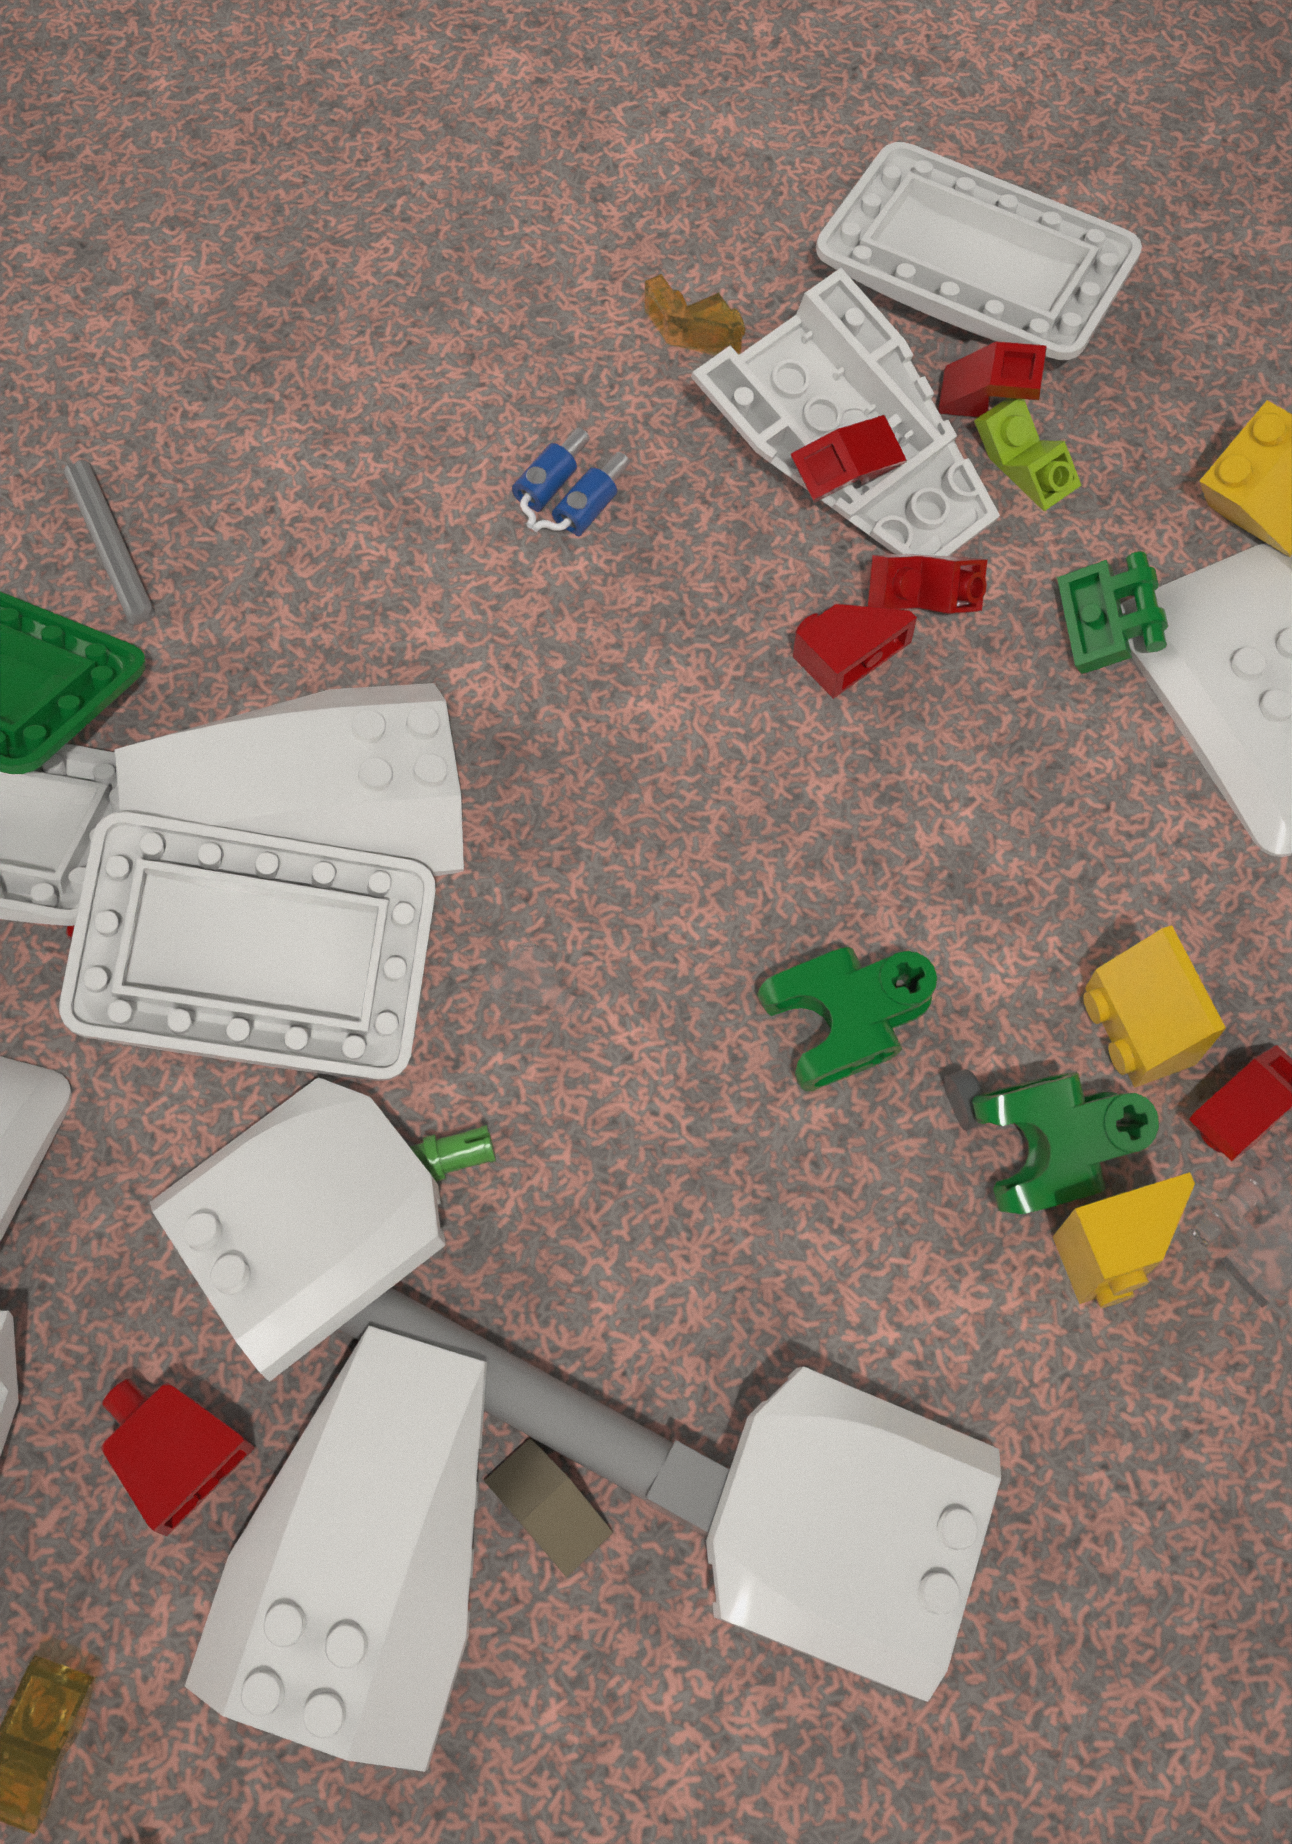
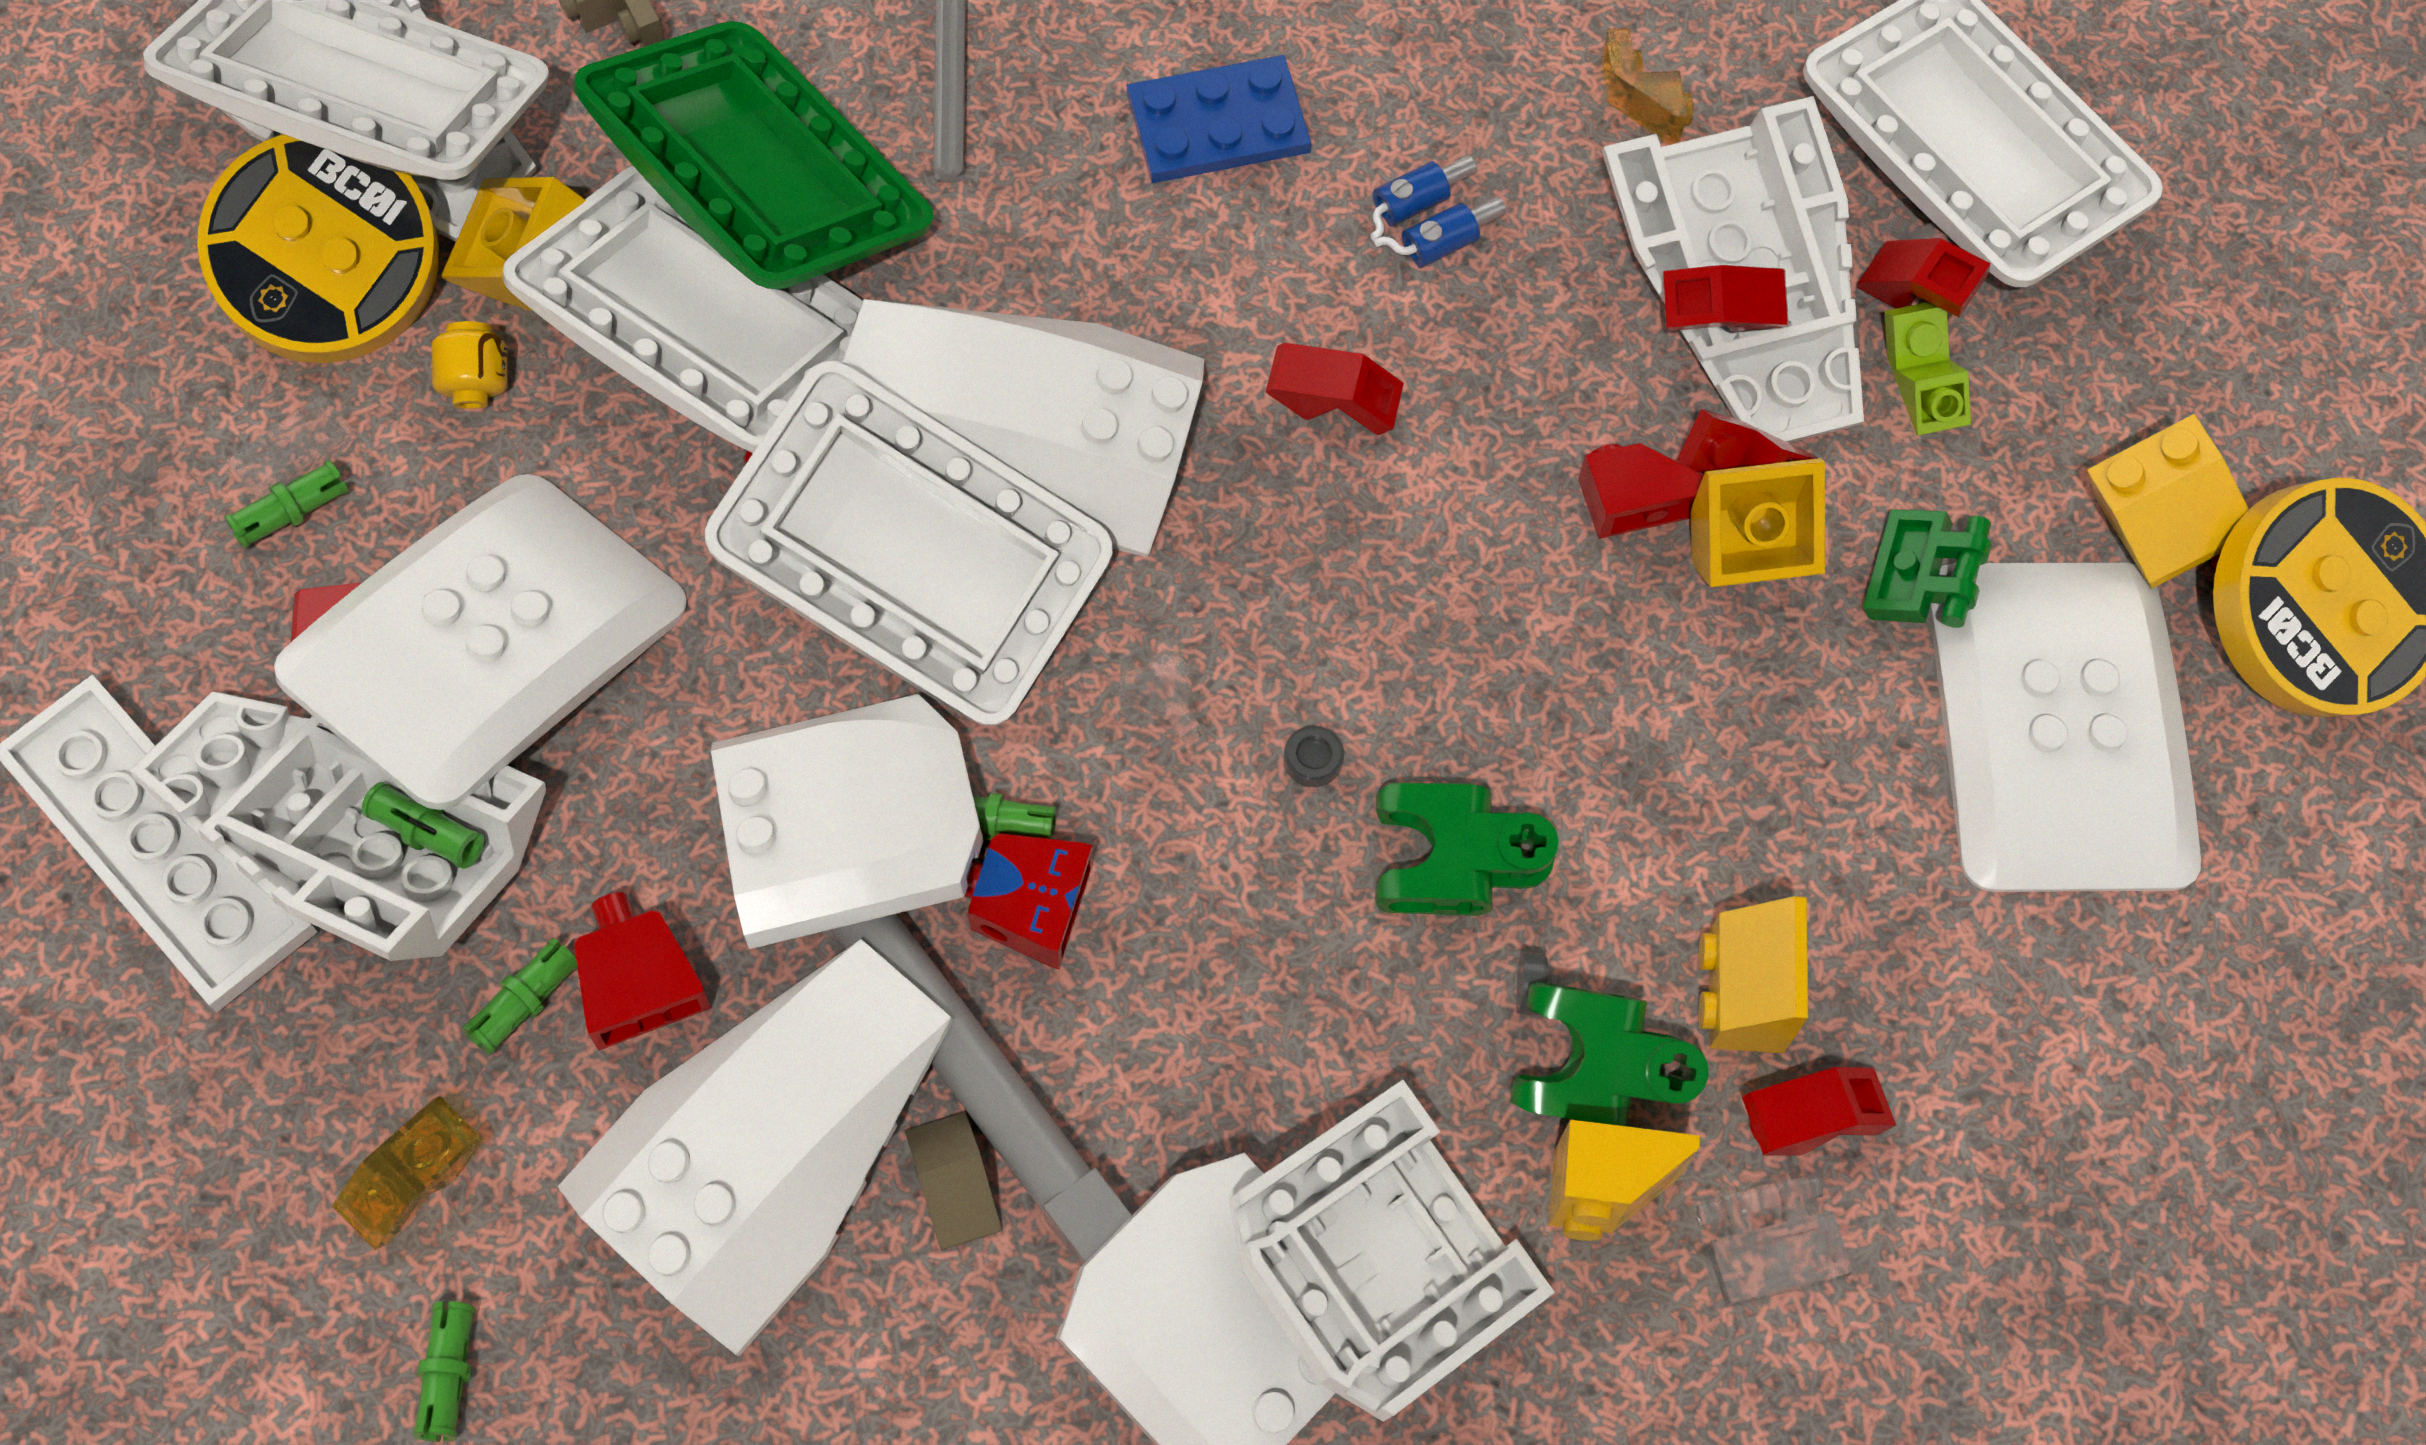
camera: 20 degrees right, 0 degrees up
(71, 1521) = (520, 996): none -> bright green pin
(352, 479) = (1218, 118): none -> blue plate
(498, 1214) = (1029, 894): none -> red torso
(544, 659) = (1323, 379): none -> red slope
(686, 983) = (1313, 756): none -> dark grey tile
(966, 629) = (1760, 523): none -> yellow slope
(966, 1409) = (1380, 1257): none -> white wedge

